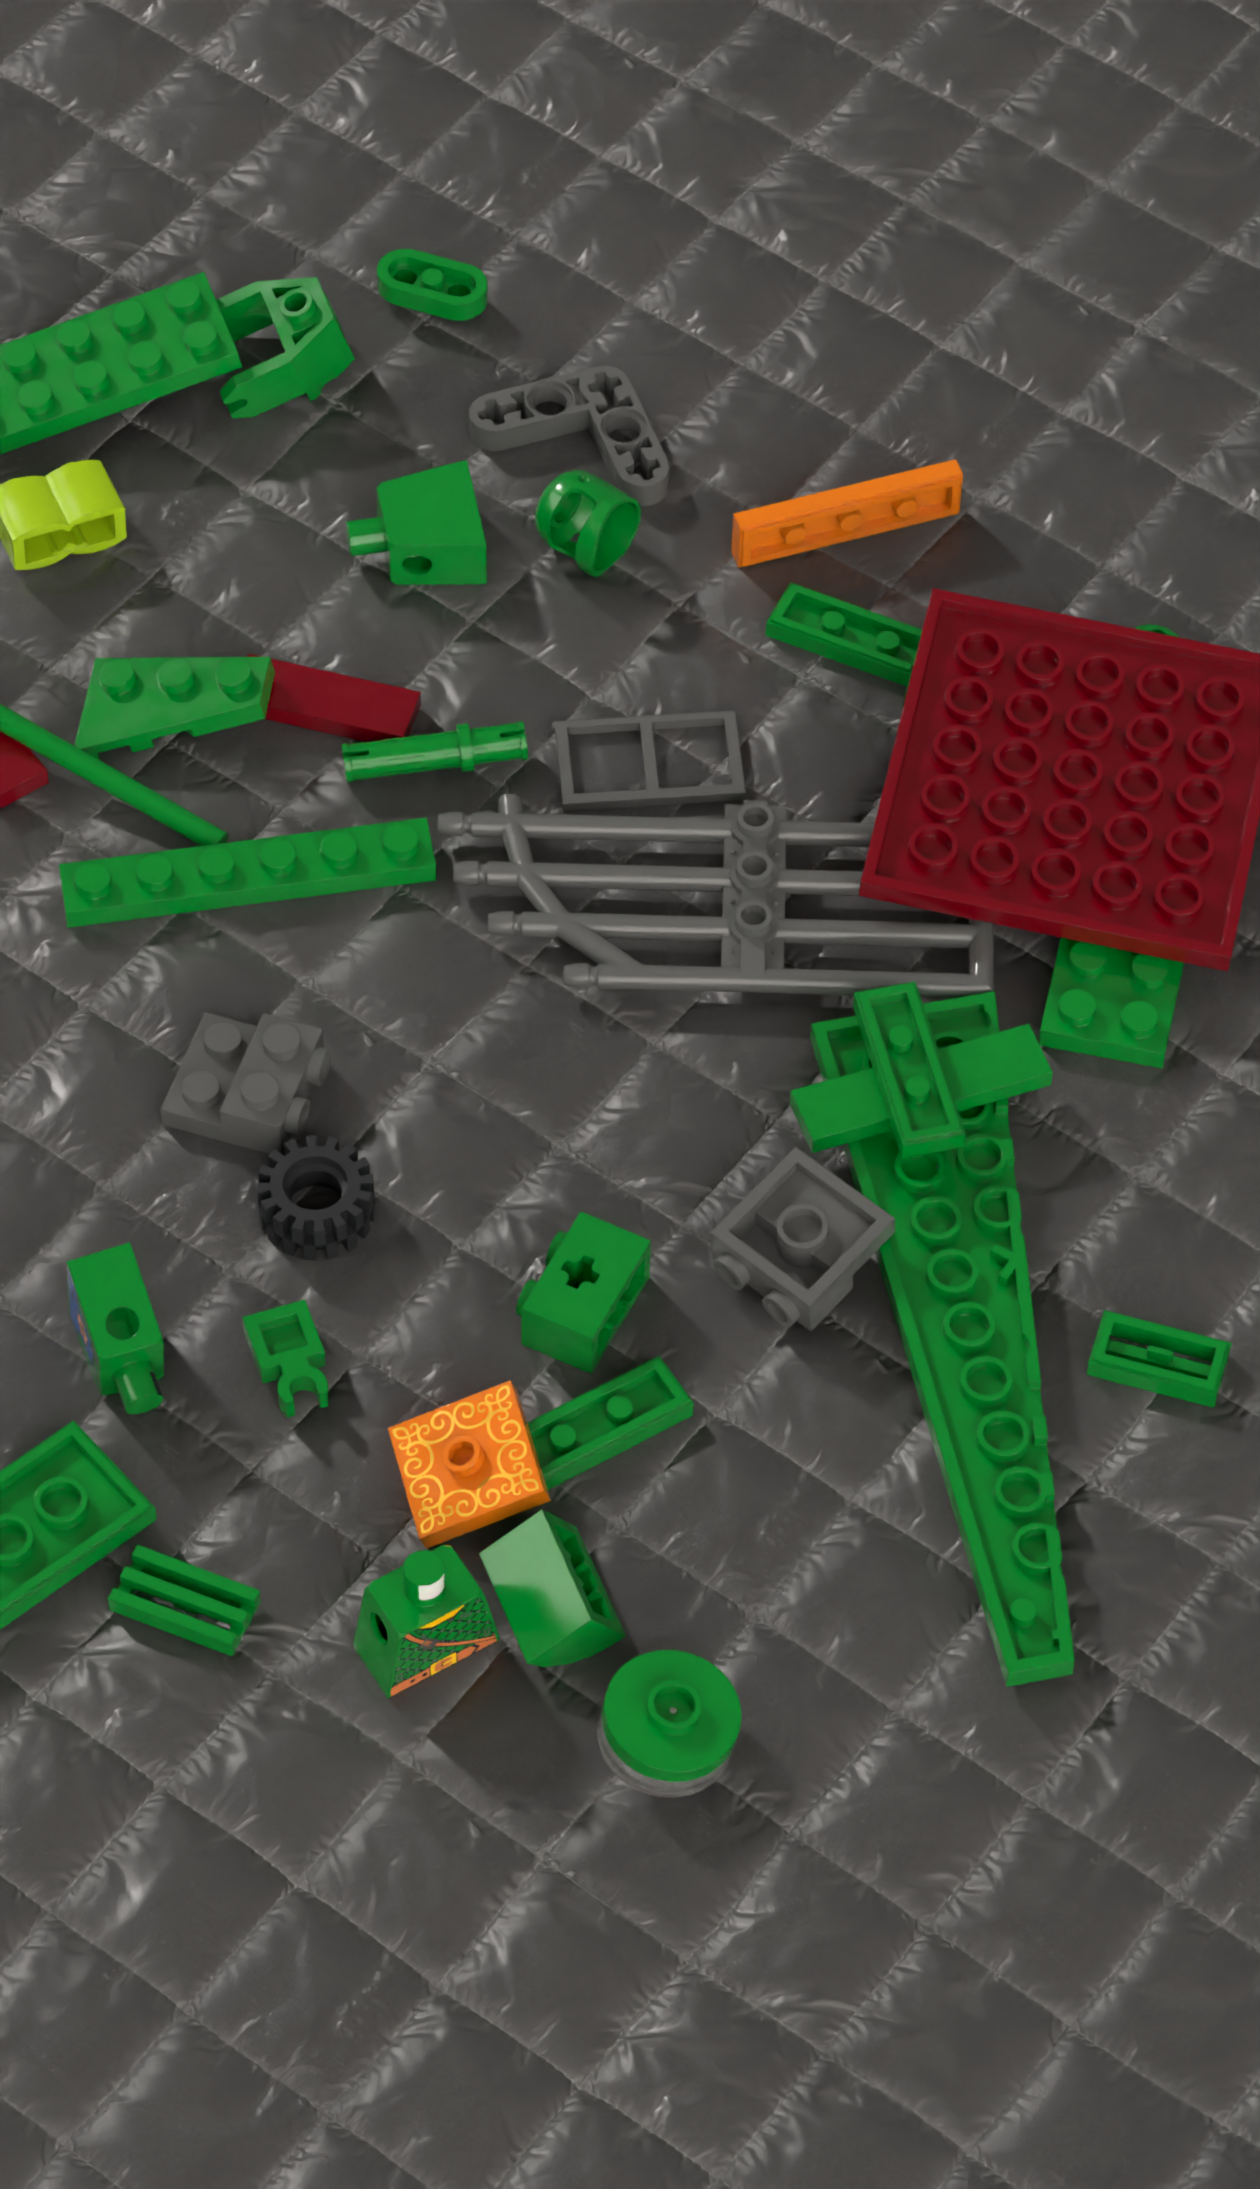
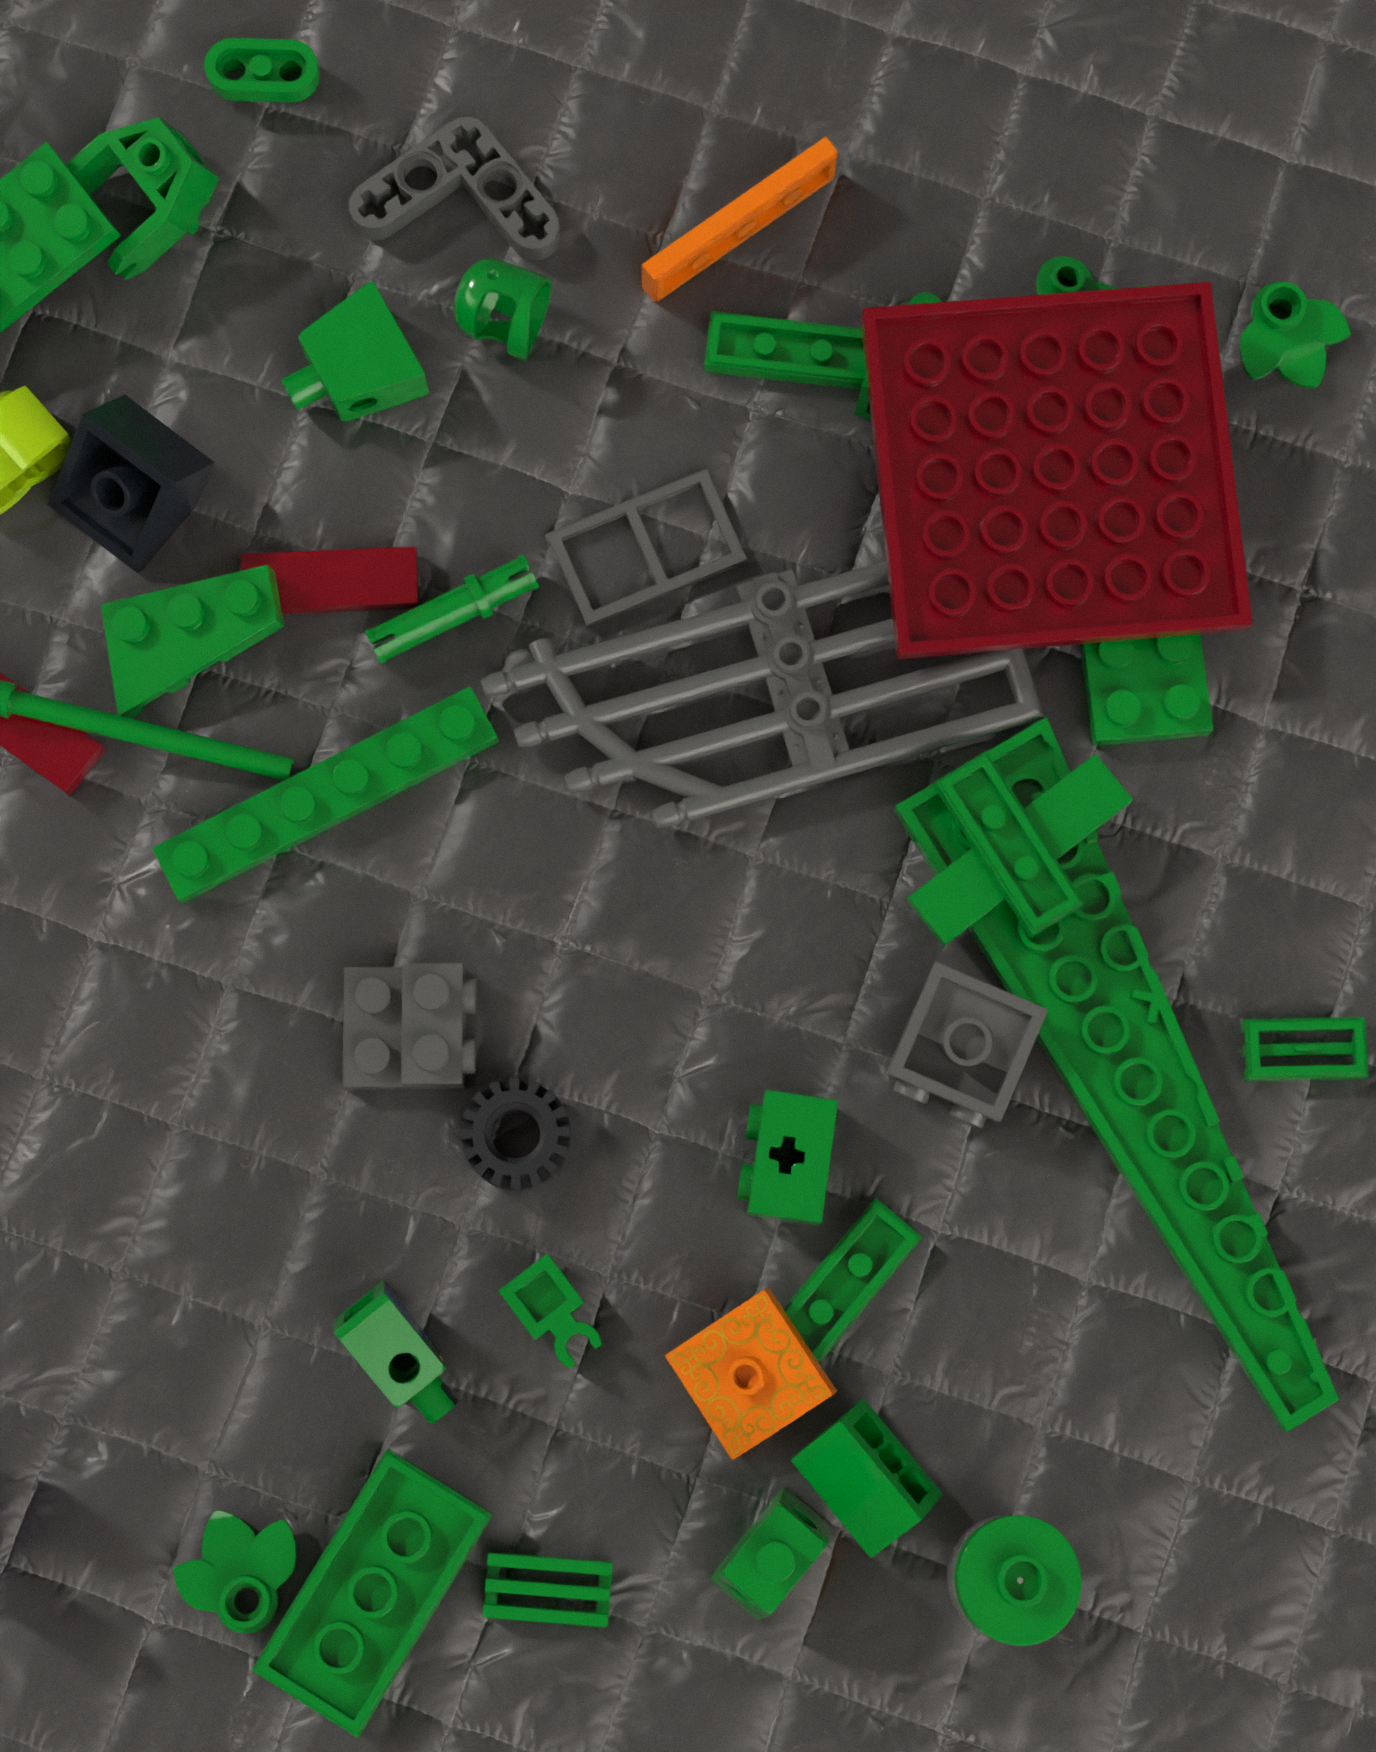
camera: 20 degrees left, 25 degrees up
(165, 566) = (129, 481): none -> black slope

